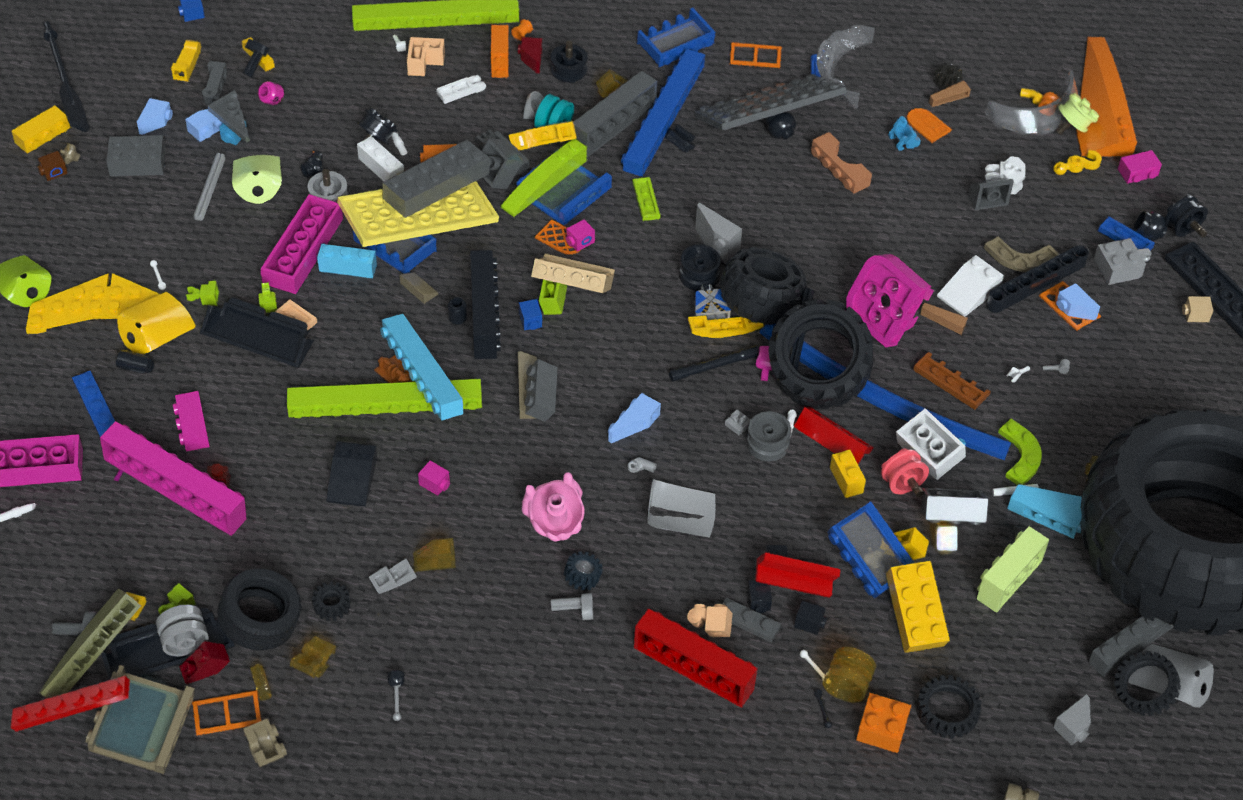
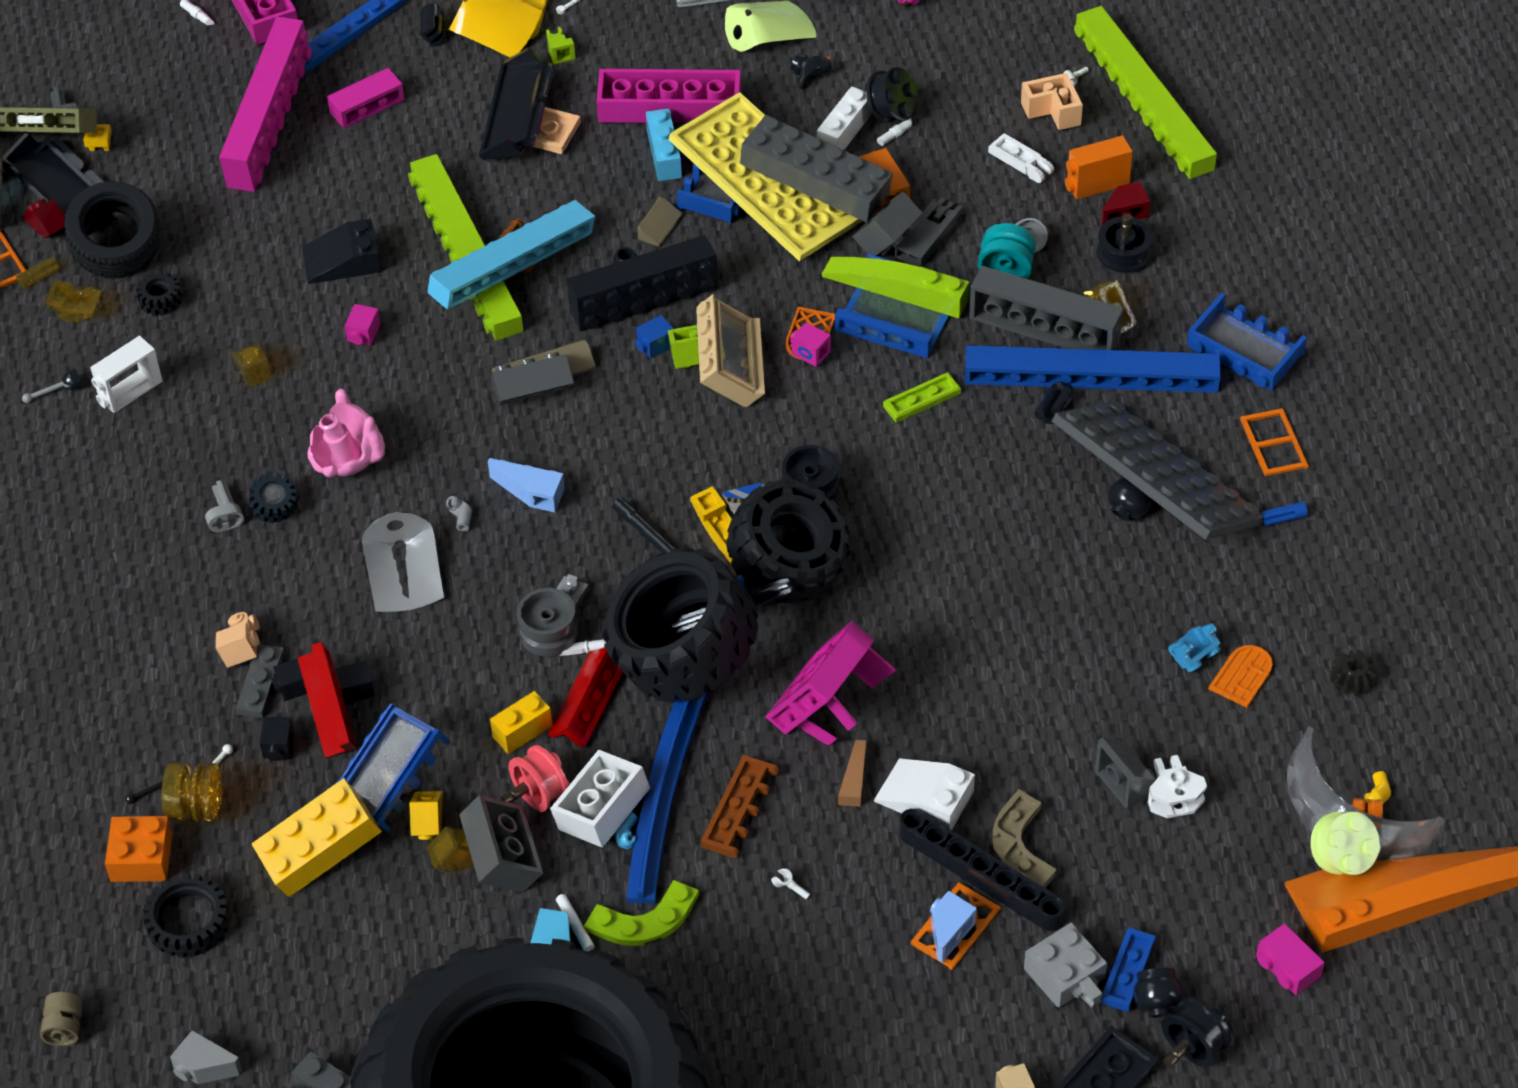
camera: 75 degrees right, 0 degrees up
(177, 597) = (120, 170): lime piece -> none
(181, 630) = (63, 176): light grey wheel -> none
(219, 473) = (292, 145): clear red brick -> none
(267, 299) = (570, 98): lime piece -> none
(328, 185) = (769, 89): light grey wheel -> none
(387, 579) = (213, 336): light grey slope -> none
(419, 634) = (135, 385): none -> white window
(520, 31) = (1166, 182): orange bush -> none
(543, 135) = (963, 249): yellow slope -> none
(695, 657) = (170, 632): red brick -> none
(718, 232) = (873, 478): light grey slope -> none
(837, 46) = (1306, 519): clear windscreen -> none
(853, 176) = (1113, 564): nougat arch -> none
(950, 94) = (1324, 689): medium nougat piece -> none
(1012, 568) = (411, 929): yellowish green brick -> none
(1063, 367) = (826, 937): light grey hand -> none
(1077, 163) = (1254, 875): yellow piece -> none

